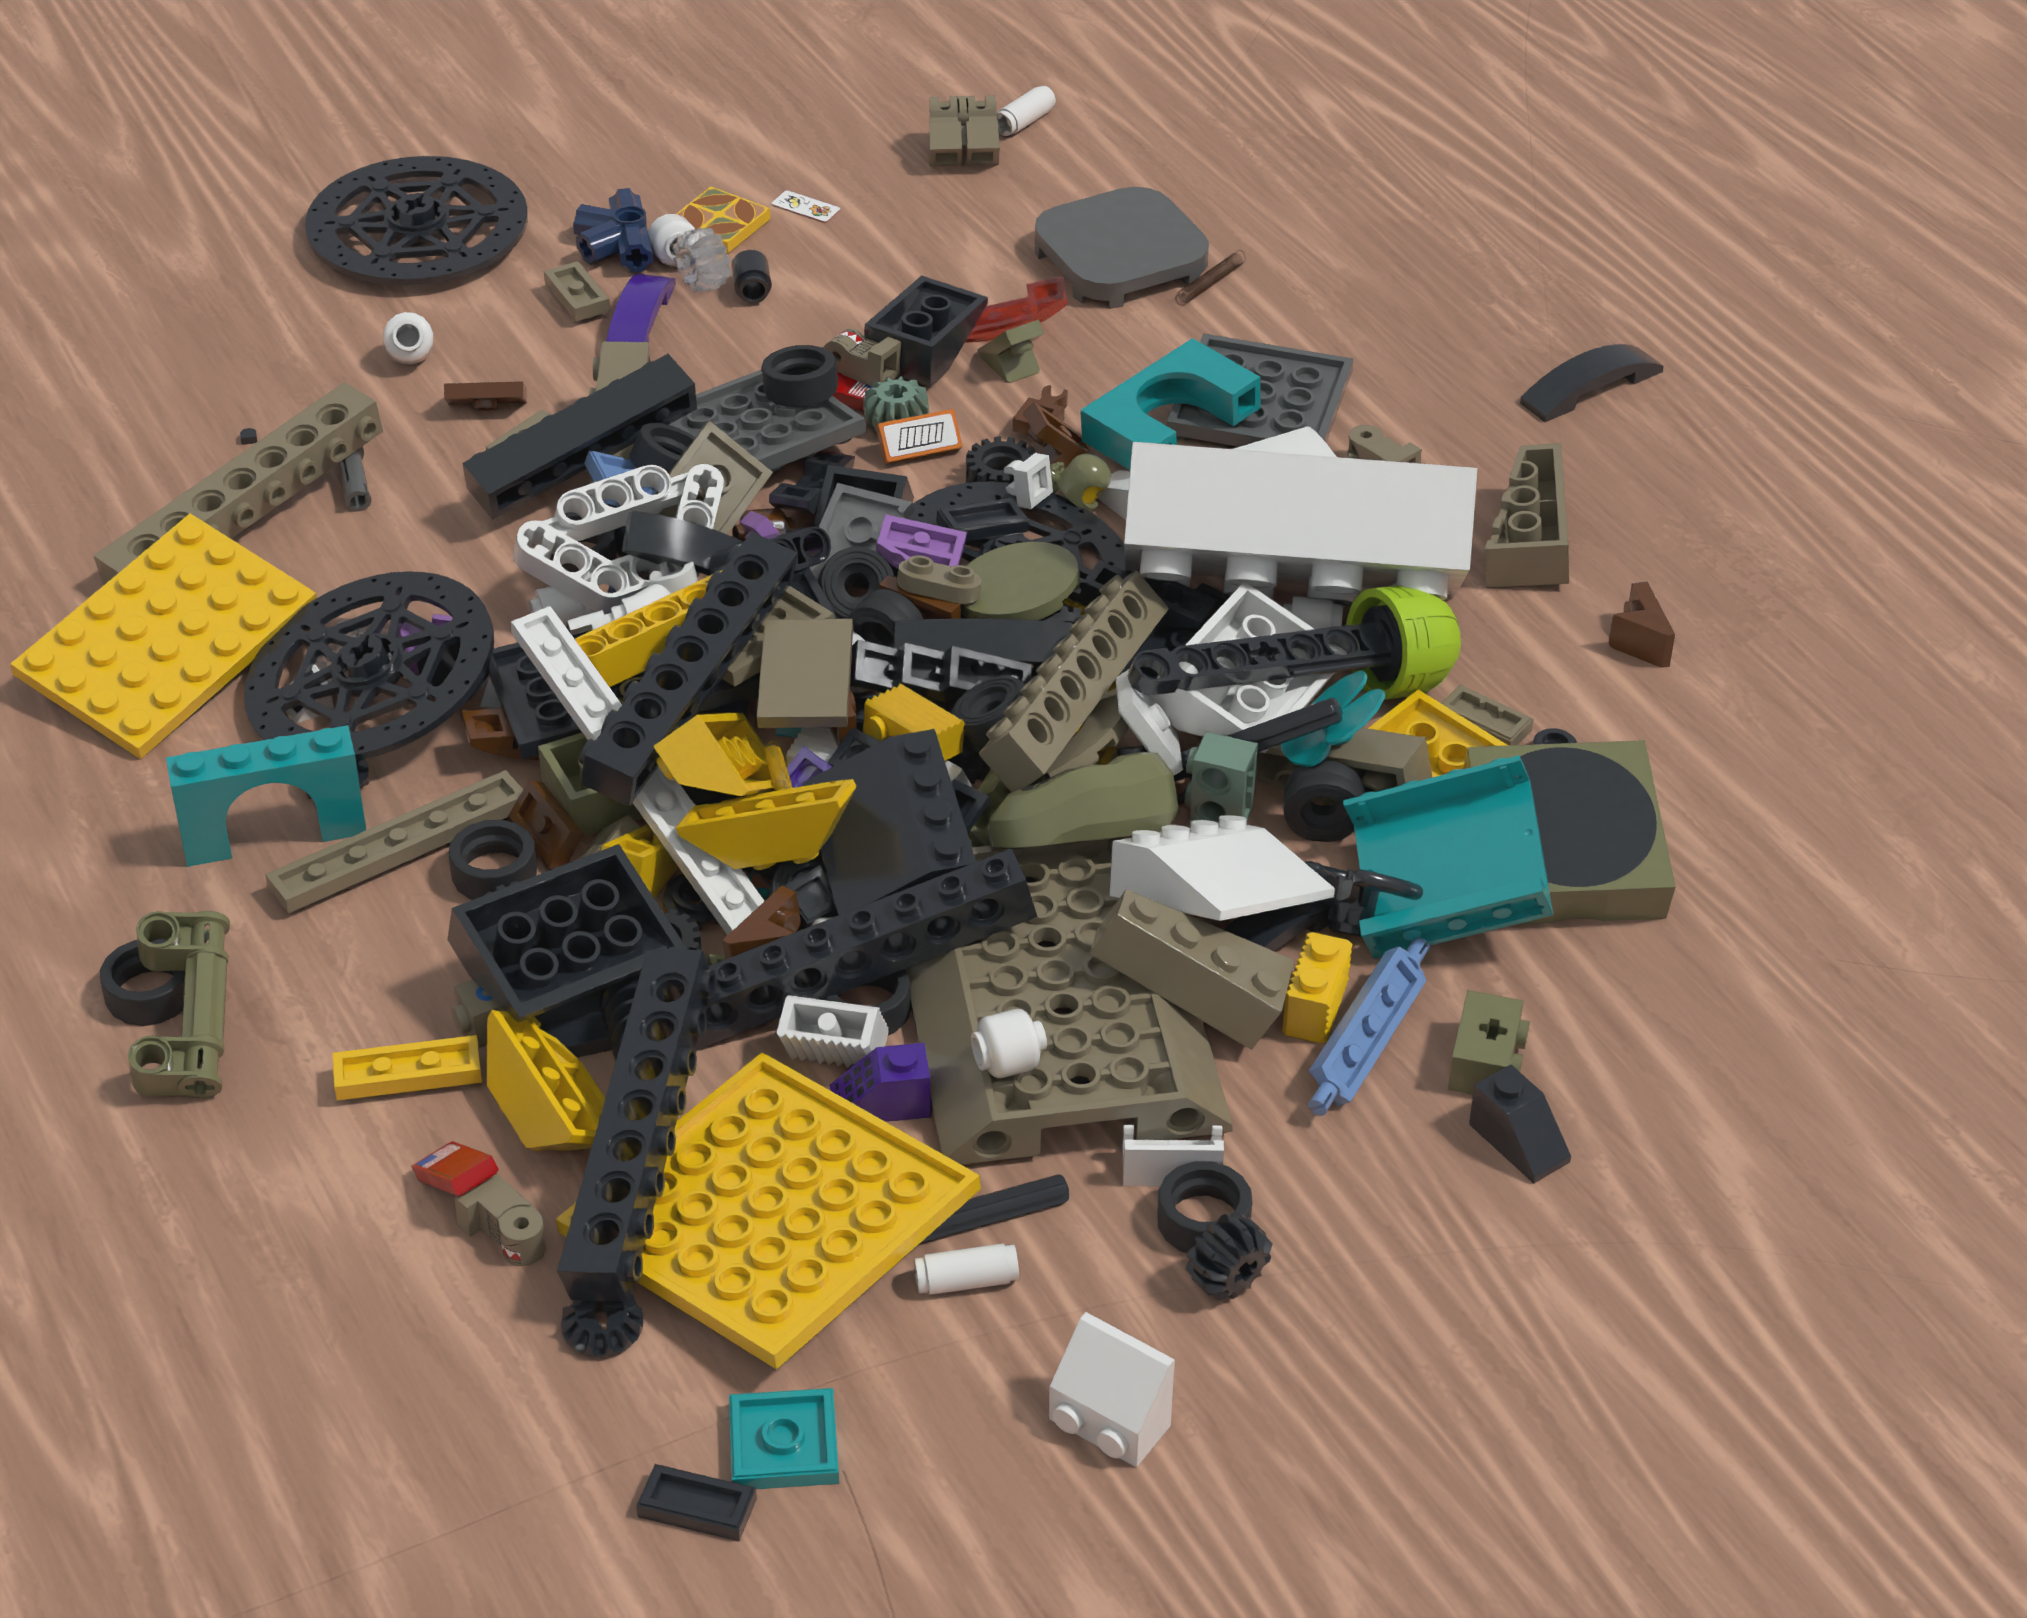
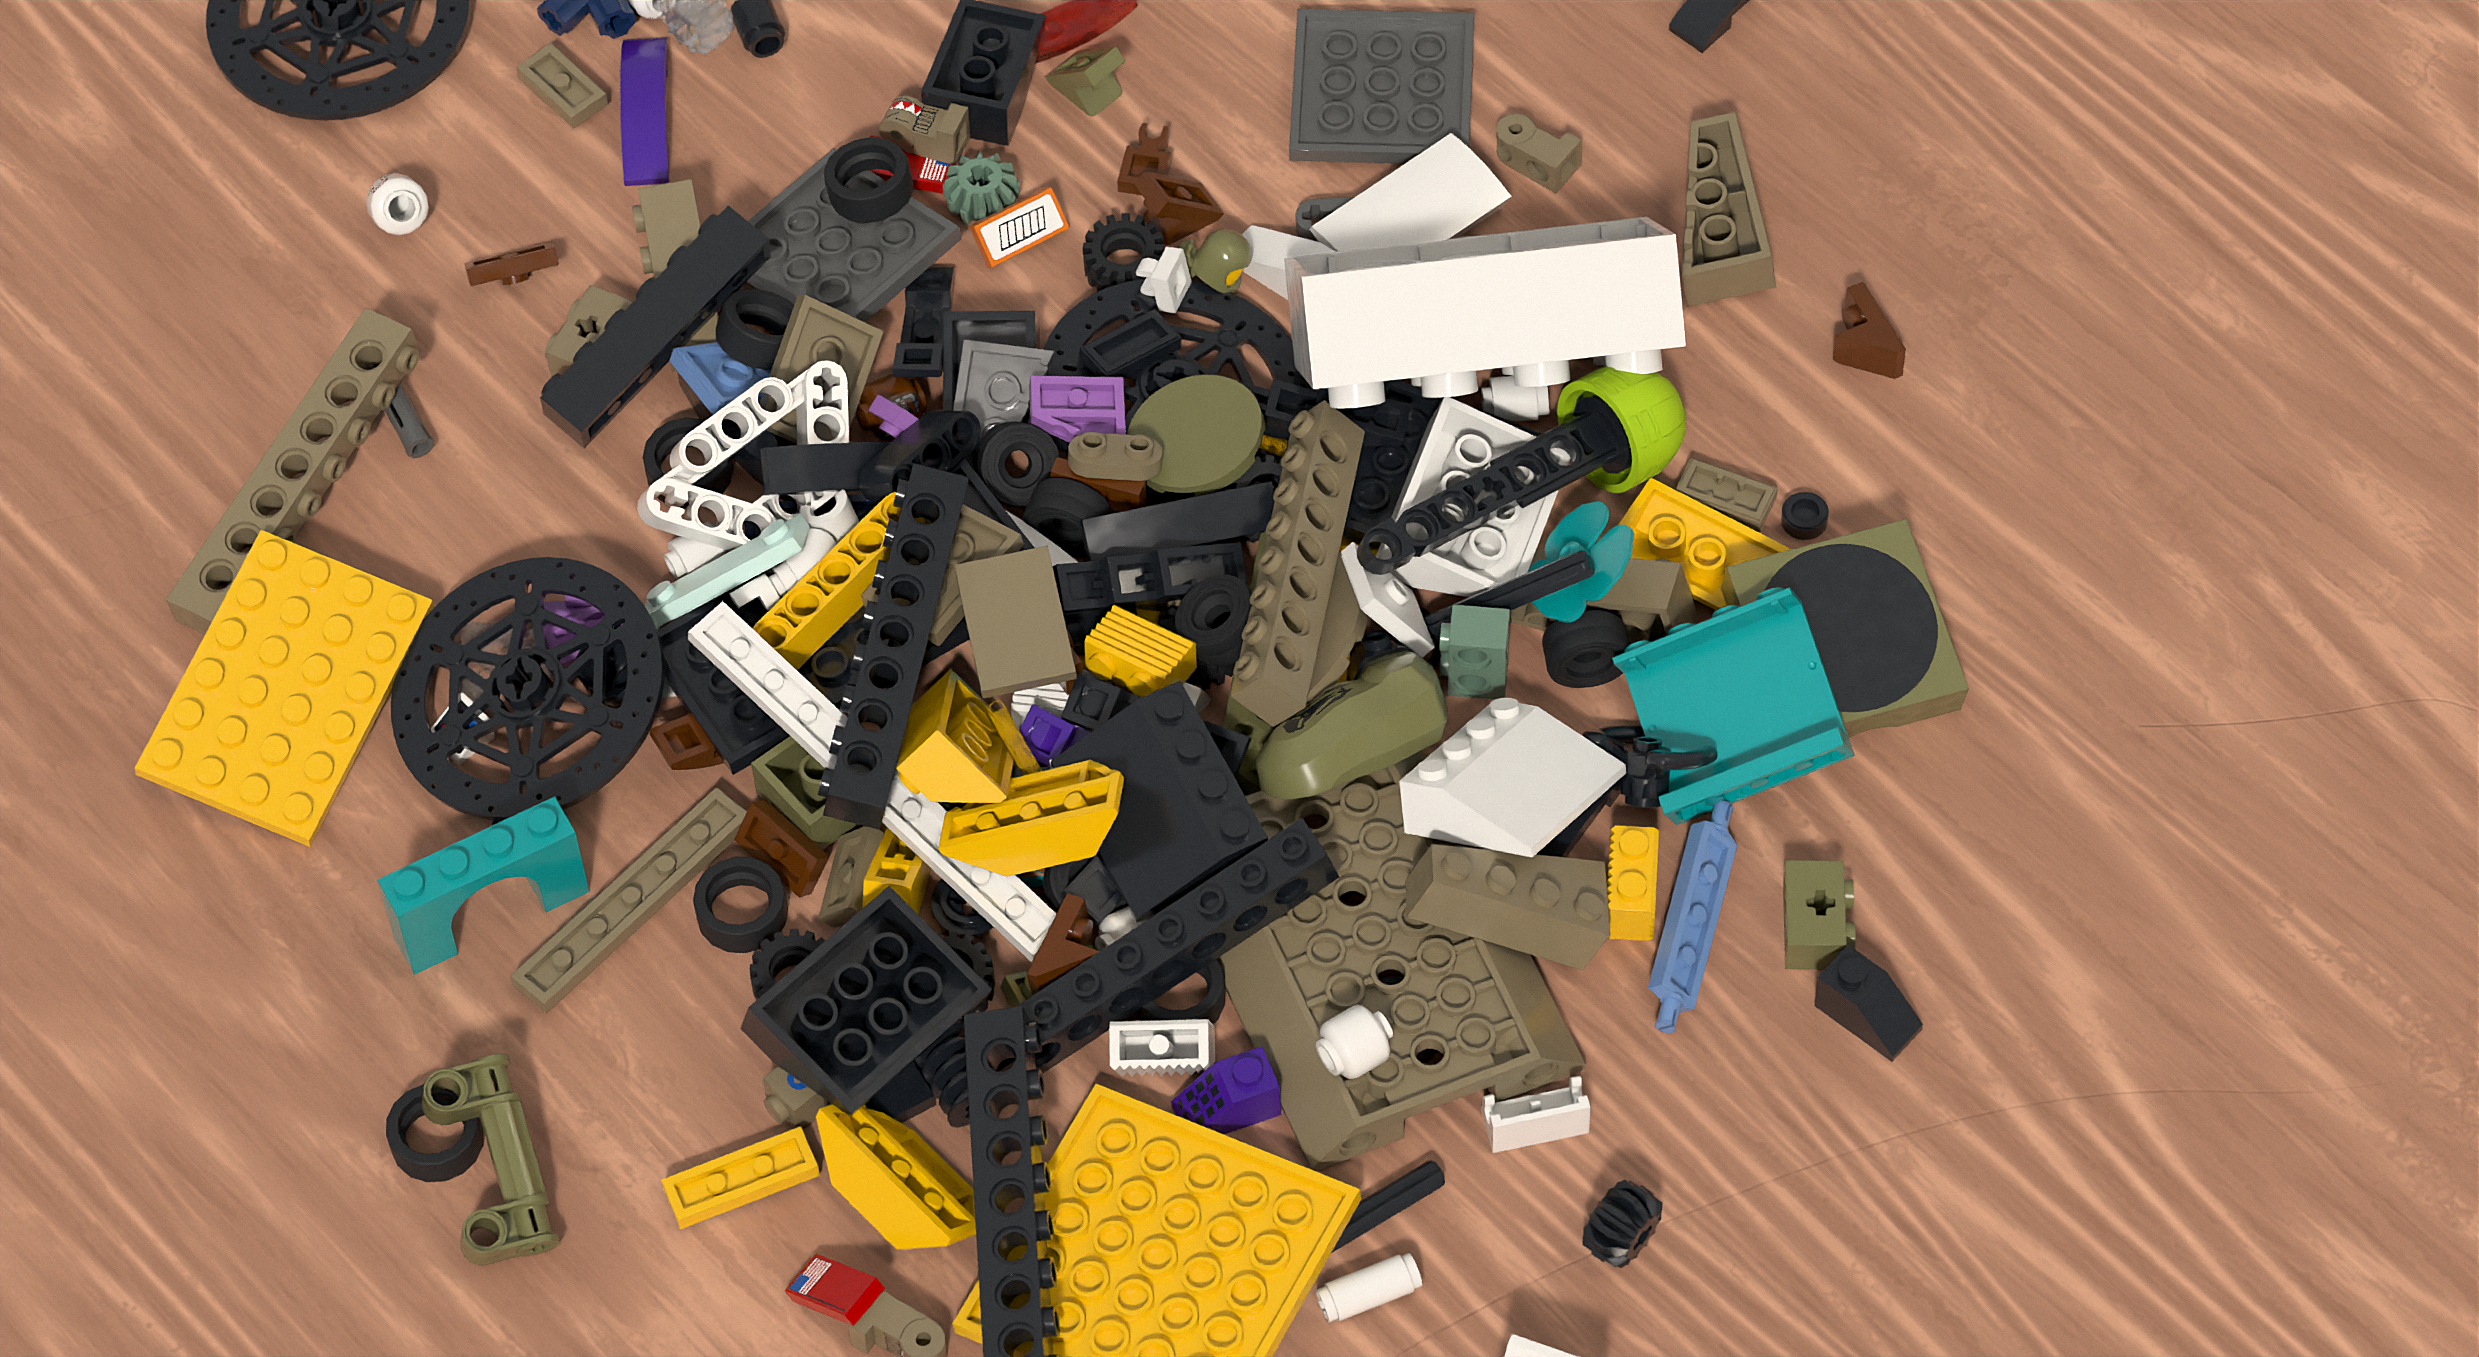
camera: 10 degrees left, 15 degrees up
(248, 436) = (258, 375): black piece -> none
(620, 585) = (773, 546): none -> light aqua plate
(1184, 376) = (1300, 88): teal arch -> none
(1198, 1179) = (1571, 1134): black tyre -> none

